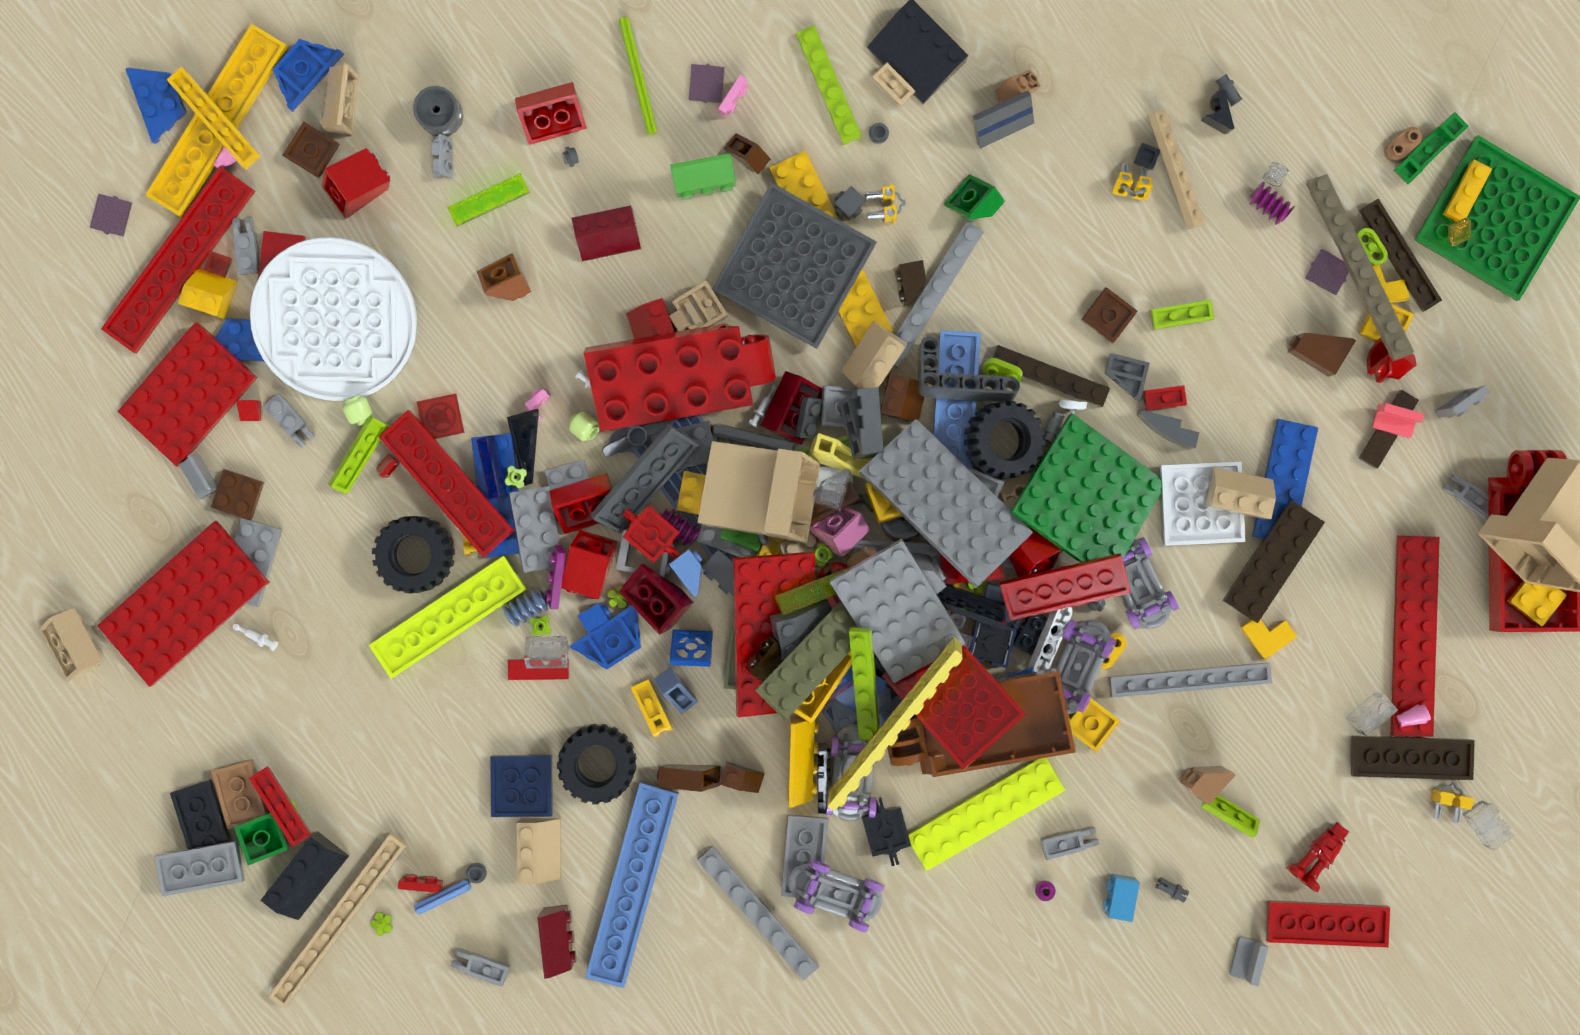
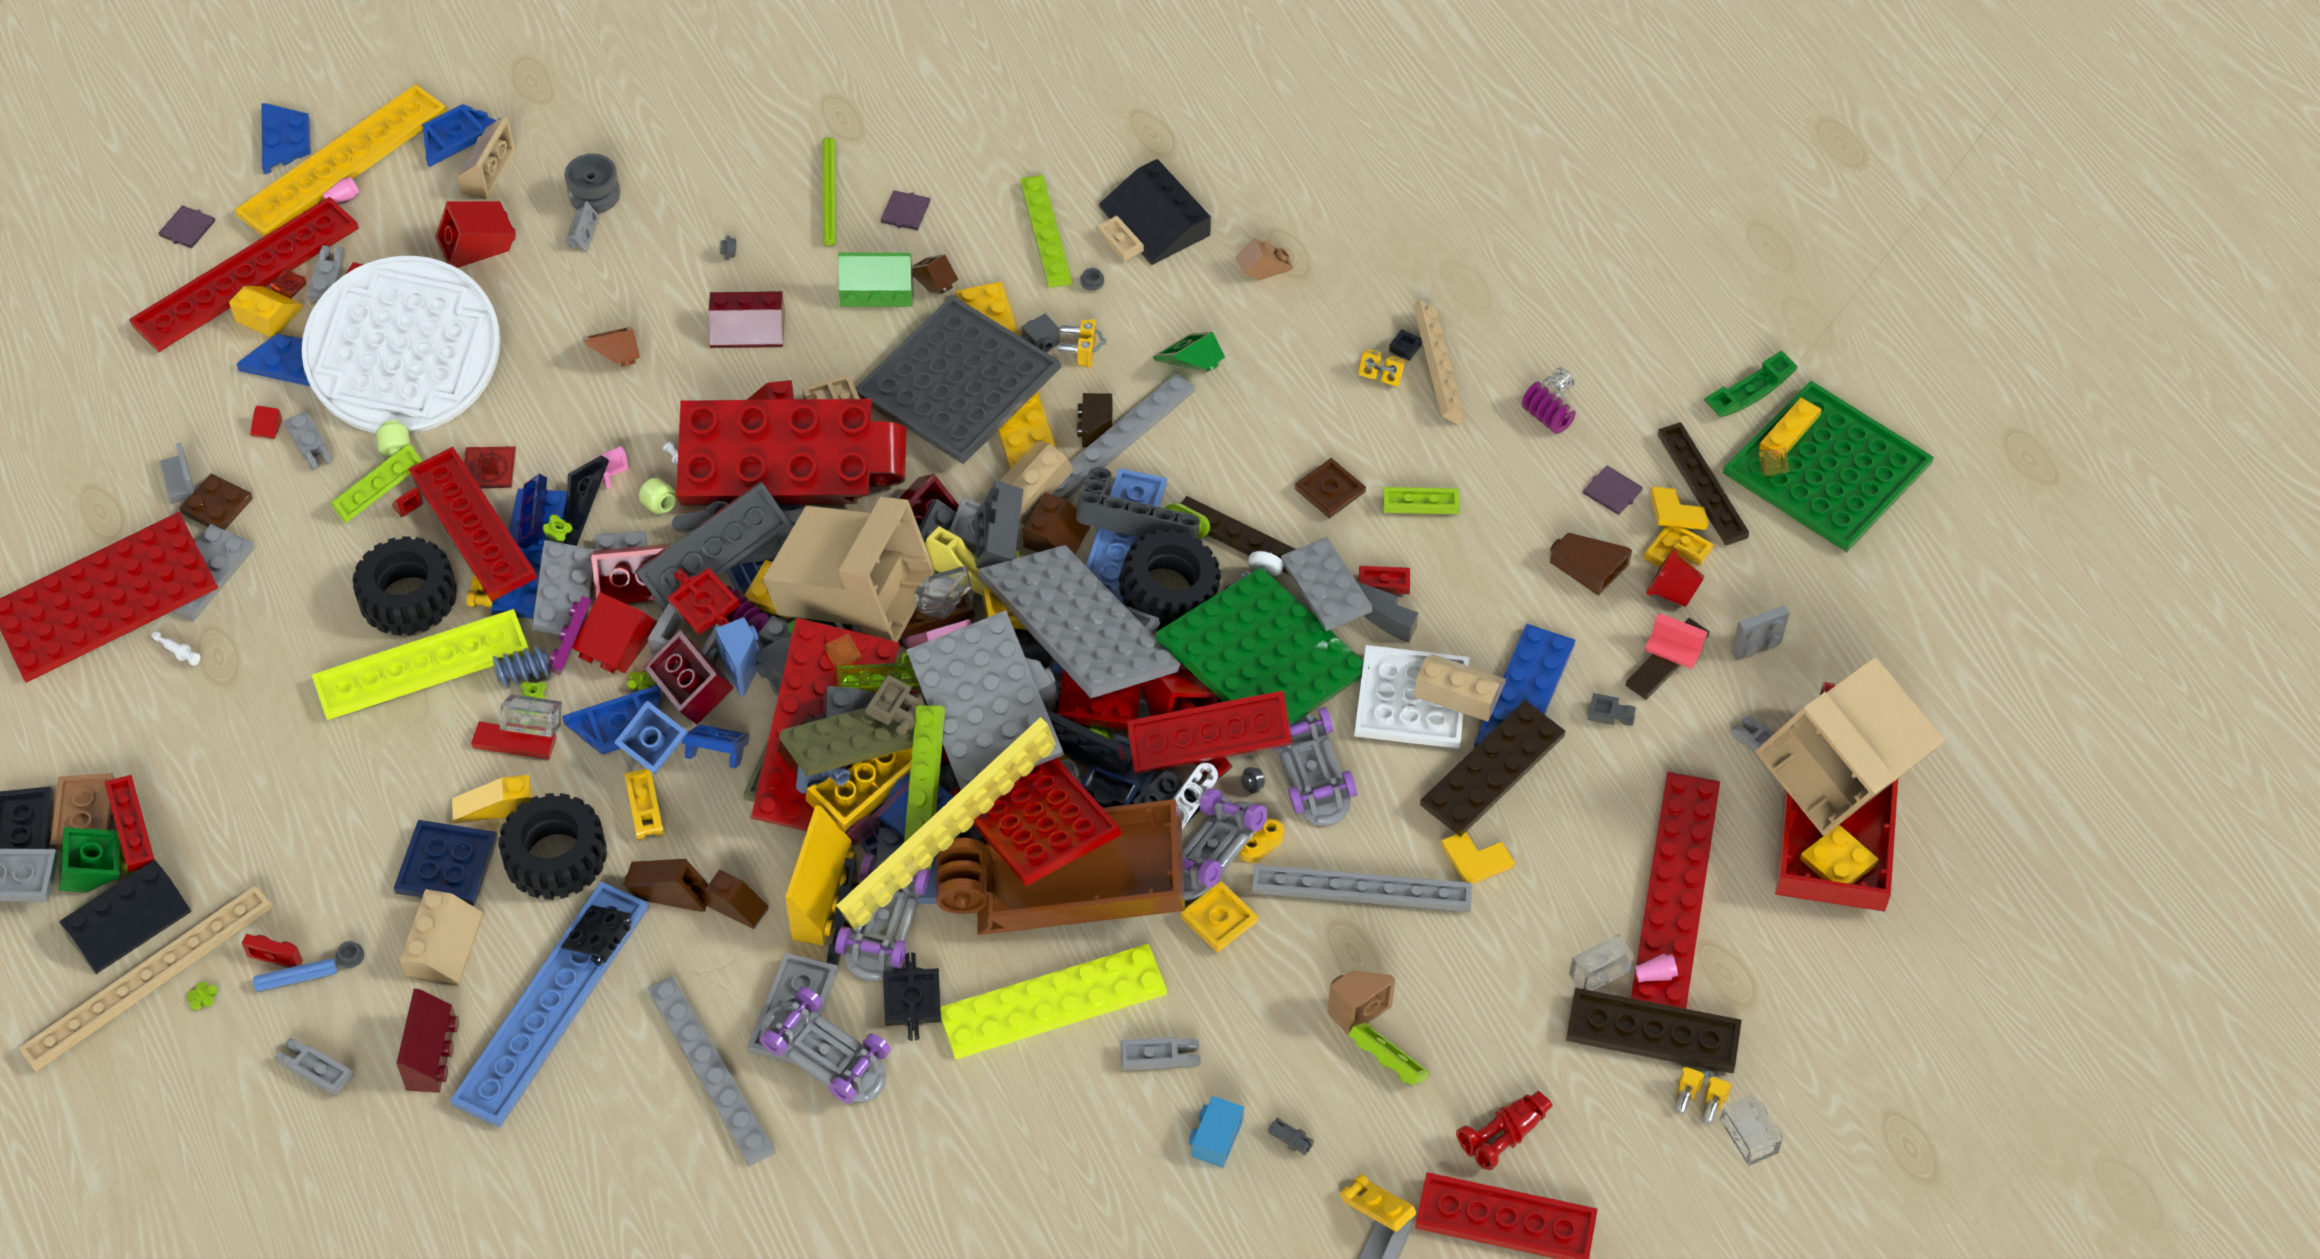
camera: 15 degrees right, 35 degrees down
(187, 394) = (200, 394): red plate -> none
(213, 118) = (341, 150): yellow plate -> none
(311, 149) = (431, 197): reddish brown plate -> none
(488, 200) = (620, 272): clear neon green plate -> none
(540, 727) = (492, 799): none -> yellow slope
(550, 113) = (718, 207): red slope -> none
(594, 616) = (603, 687): blue brick -> none
(647, 664) = (651, 737): none -> medium blue slope
(650, 831) = (598, 933): none -> black hinge
(675, 690) = (681, 788): sand blue slope -> none
(729, 103) = (931, 221): bright pink plate -> none
(776, 579) = (842, 651): none -> clear yellow plate
(827, 628) = (888, 702): none -> dark tan plate
(1003, 119) = (1239, 281): dark grey tile -> none
(1042, 885) = (1113, 1115): magenta plate -> none
(1125, 419) = (1326, 583): none -> light grey plate
(1128, 374) = (1348, 545): dark grey wing -> none
(1222, 118) = (1498, 319): black slope -> none
(1231, 92) = (1514, 297): dark grey pin -> none
(1242, 935) = (1377, 1203): none -> yellow plate
(1349, 488) = (1607, 709): none -> dark grey plate
(1360, 268) = (1645, 477): dark tan plate -> none
(1373, 245) = (1667, 472): lime plate -> none
(1404, 144) = (1725, 376): medium nougat plate -> none

